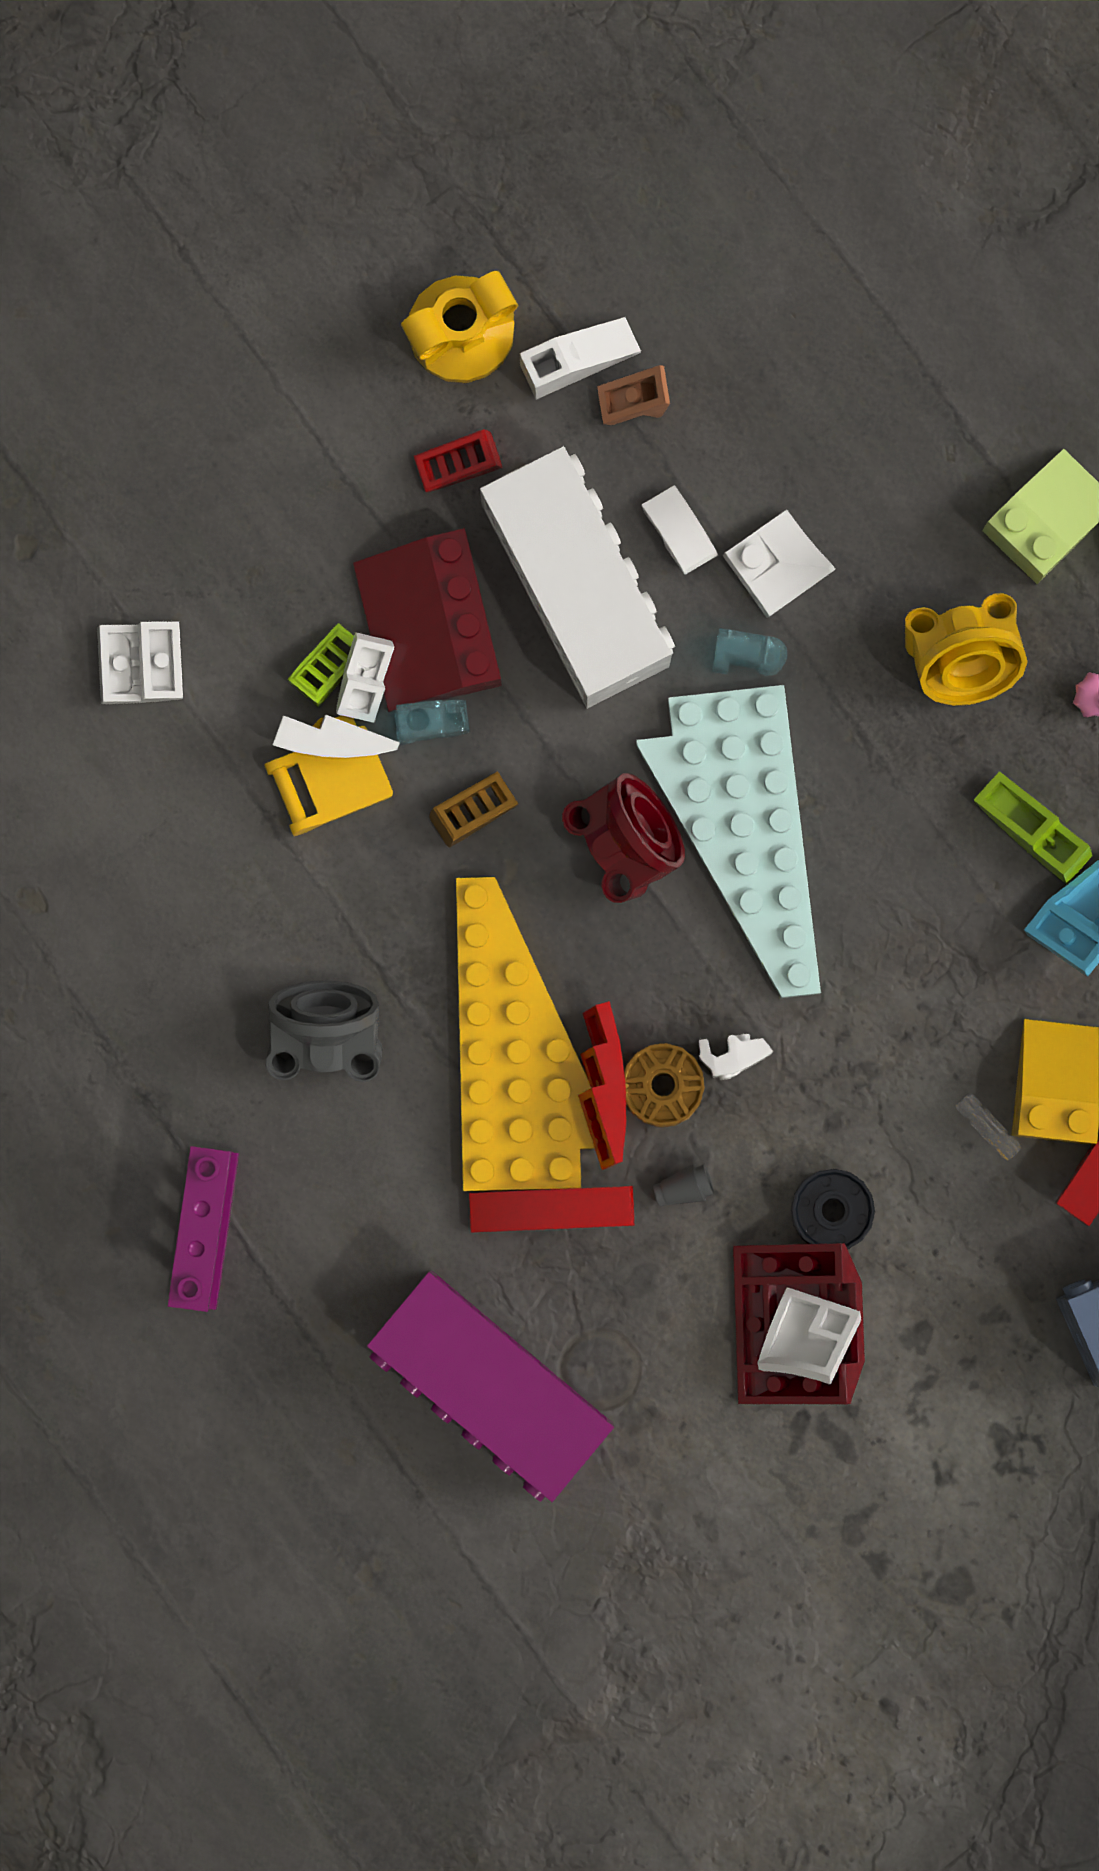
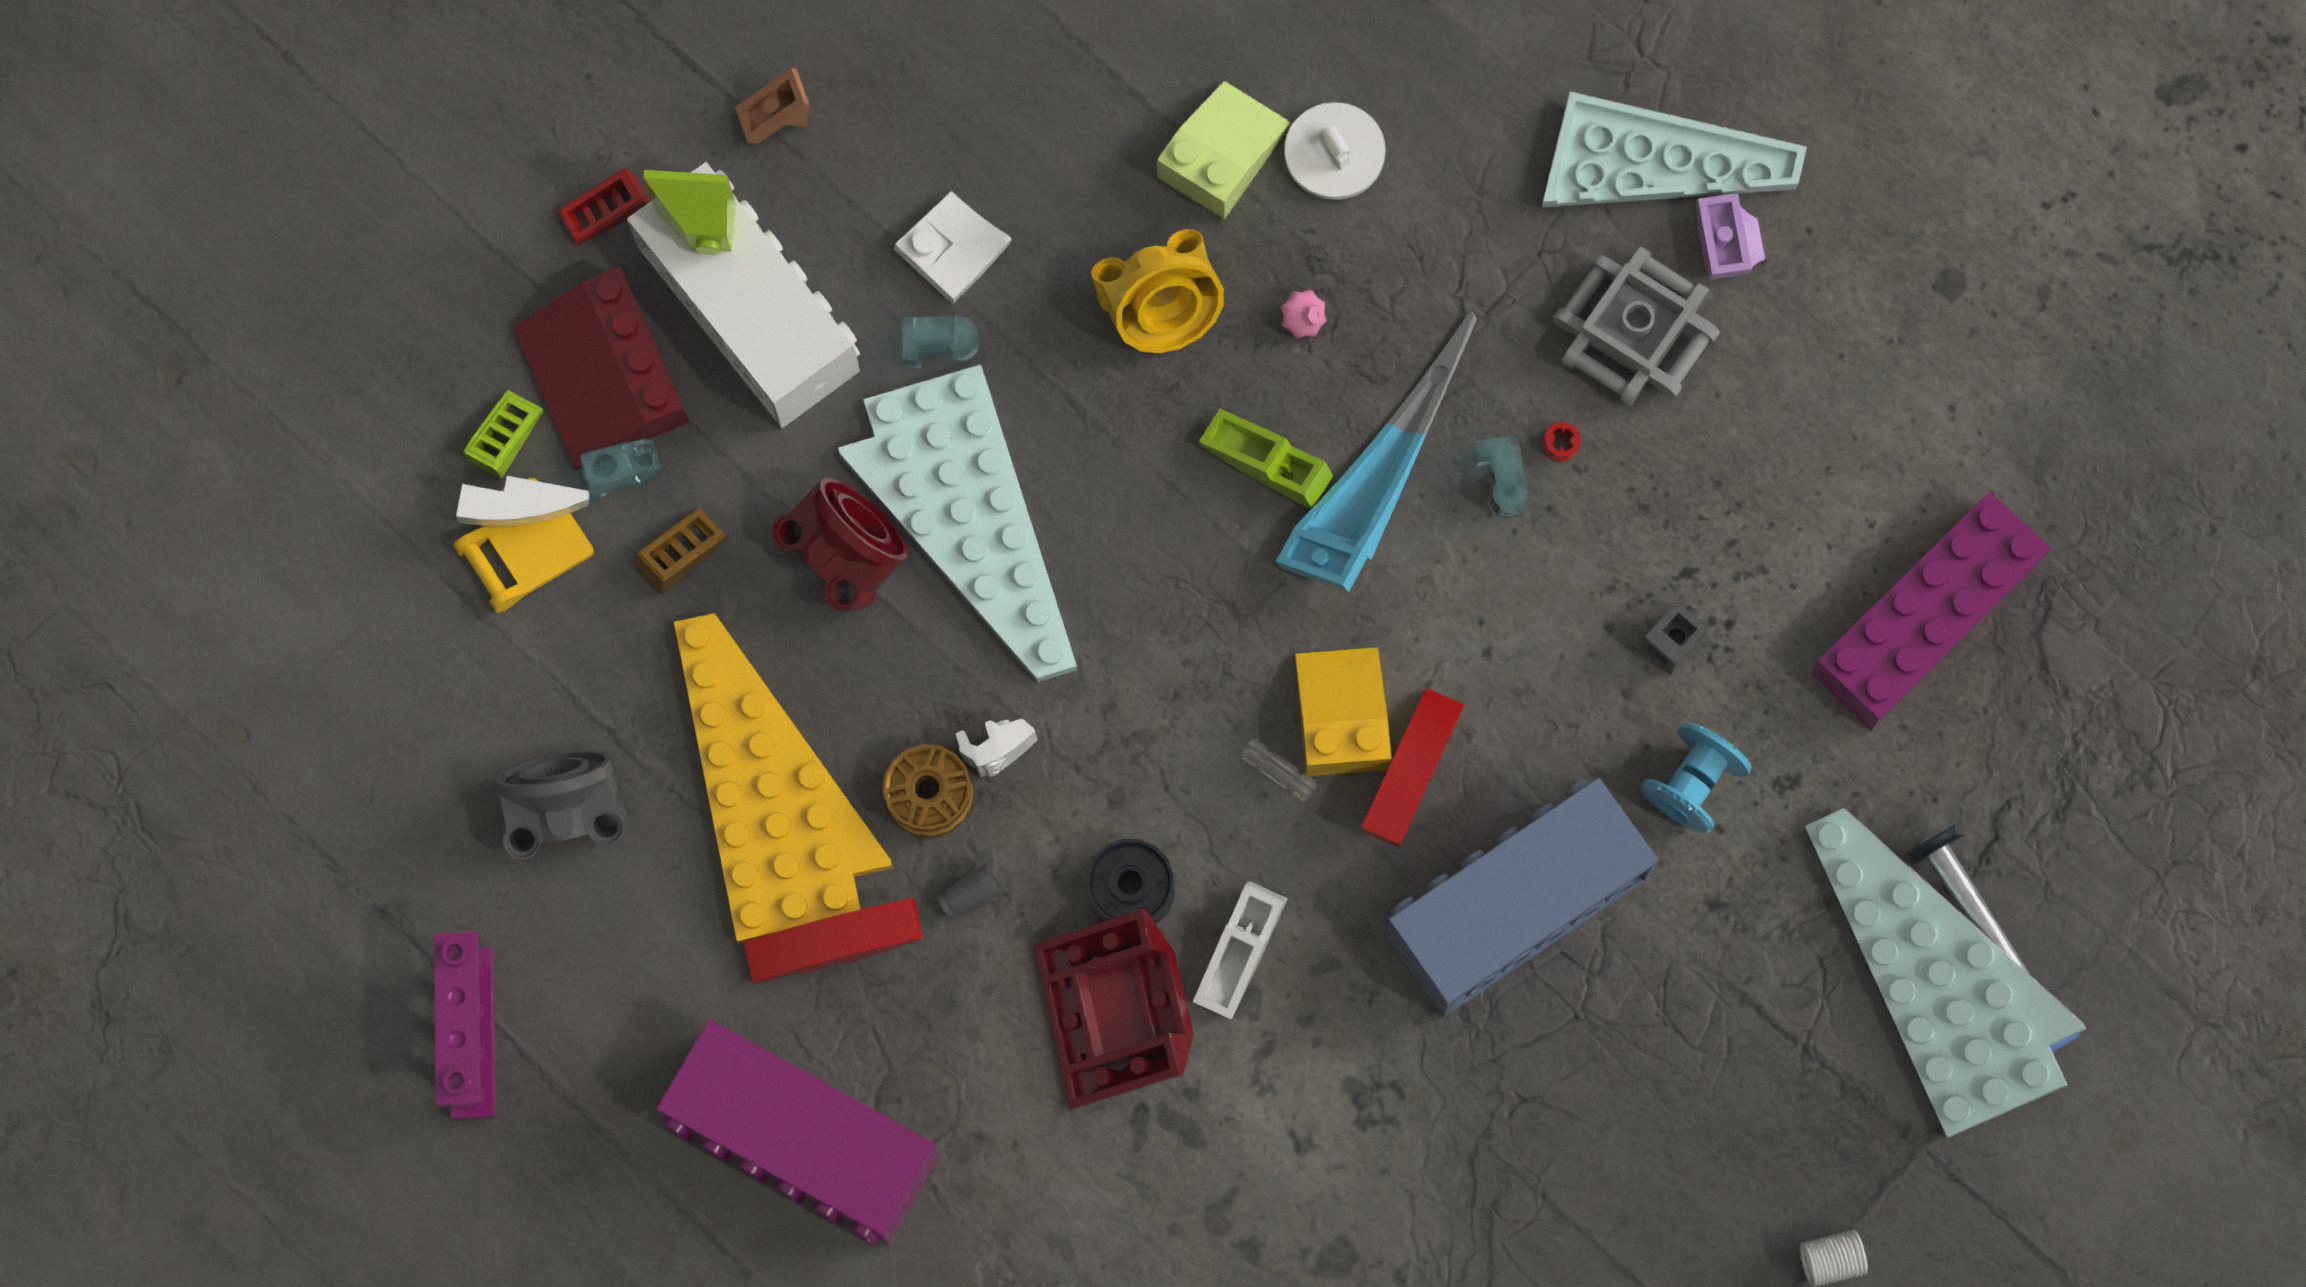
camera: 10 degrees left, 10 degrees down
(140, 662) = (306, 468): white slope -> none
(364, 676) = (543, 436): white slope -> none
(466, 353) = (592, 97): yellow piece -> none
(548, 497) = (695, 207): none -> lime slope
(577, 356) = (707, 80): white slope -> none
(606, 1099) = (868, 809): red slope -> none
(679, 529) = (845, 231): white slope -> none
(808, 1336) = (1126, 1016): white plate -> none
(922, 1289) = (1240, 949): none -> white slope

